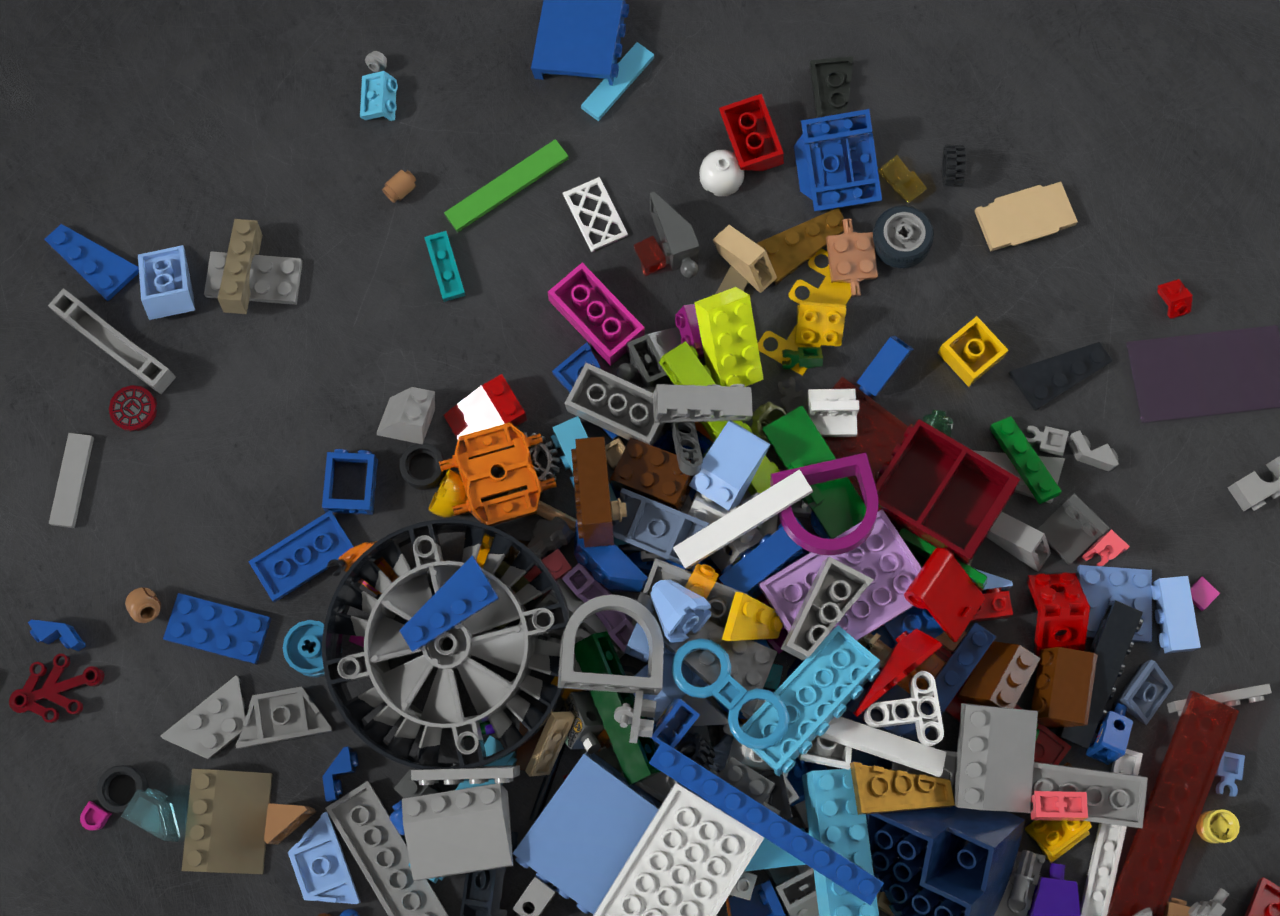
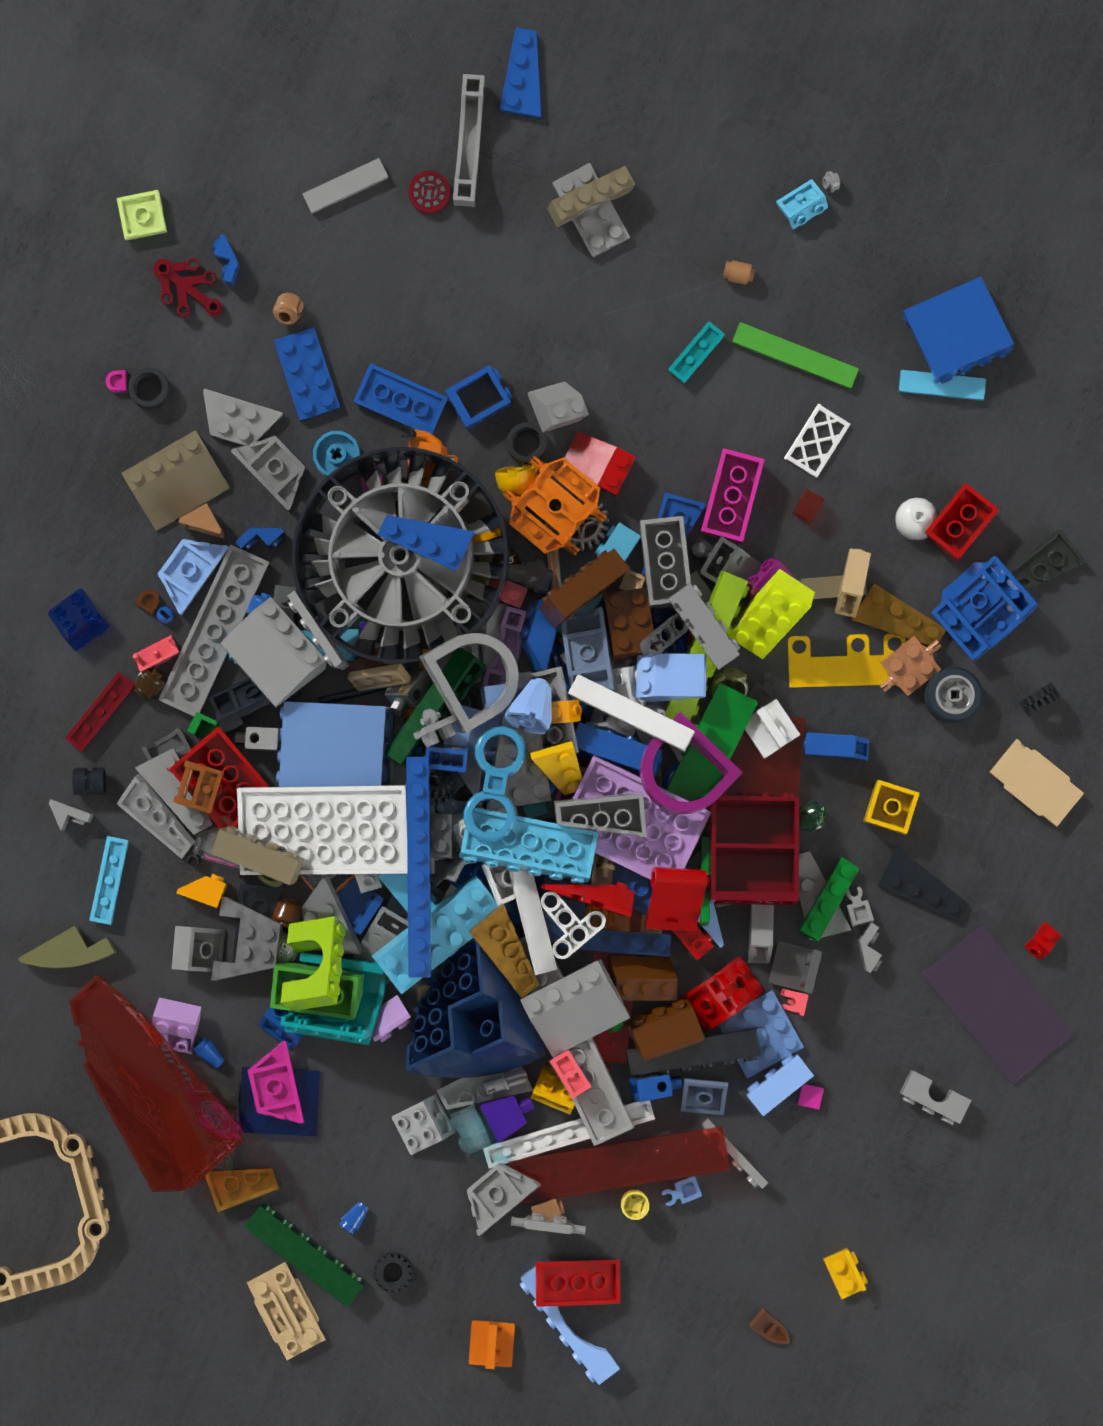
camera: 55 degrees right, 10 degrees up
(153, 813) = (146, 424): clear light blue slope -> none
(165, 283) = (542, 146): light blue slope -> none
(618, 510) = (583, 614): tan plate -> none
(677, 237) = (833, 521): dark grey slope -> none
(806, 357) = (804, 681): dark green plate -> none
(820, 323) = (837, 674): yellow bracket -> none
(901, 179) = (1005, 665): clear yellow slope -> none

